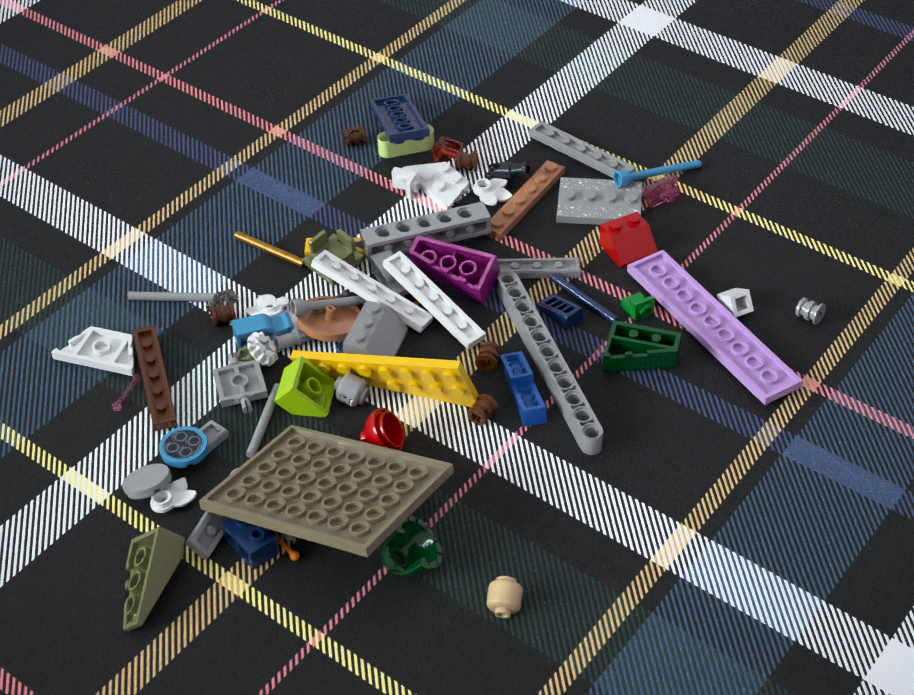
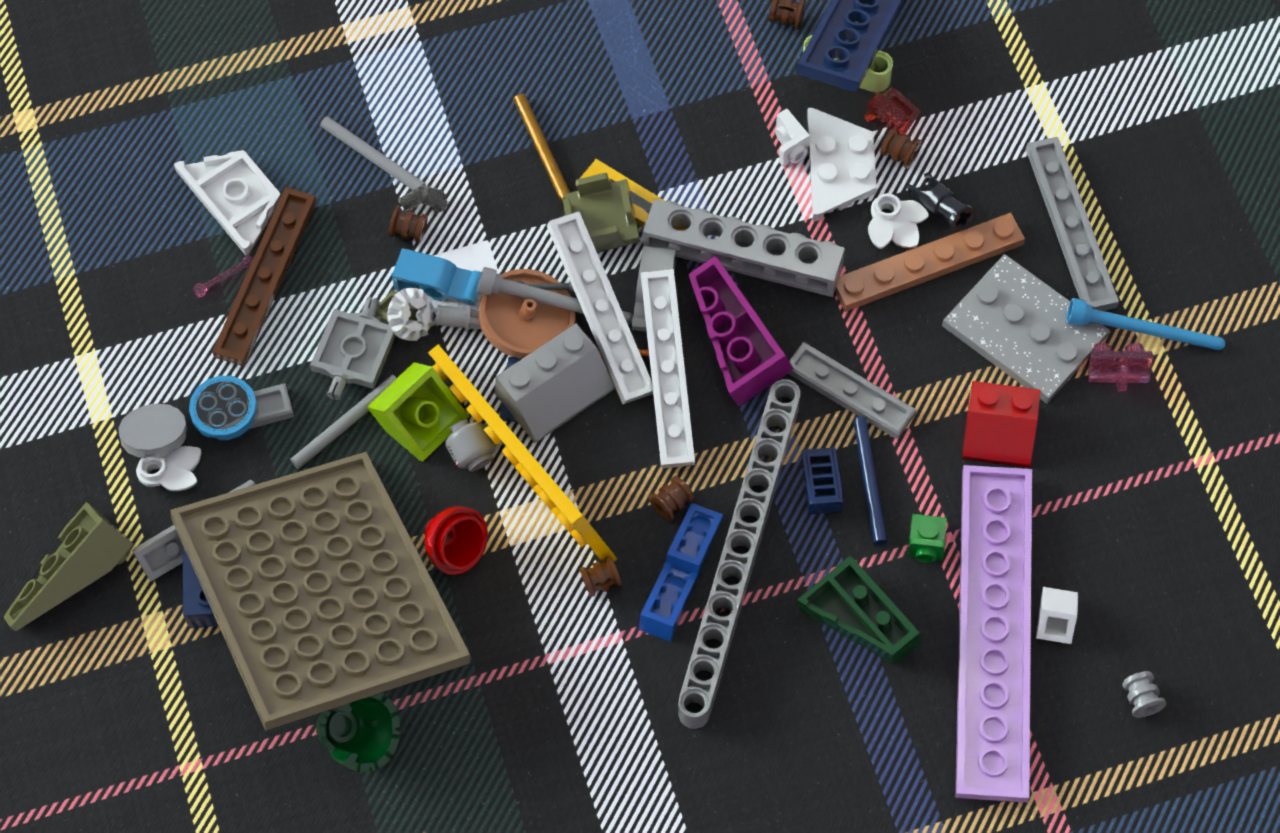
camera: 35 degrees right, 20 degrees up
(268, 305) = (471, 245): white plate -> none

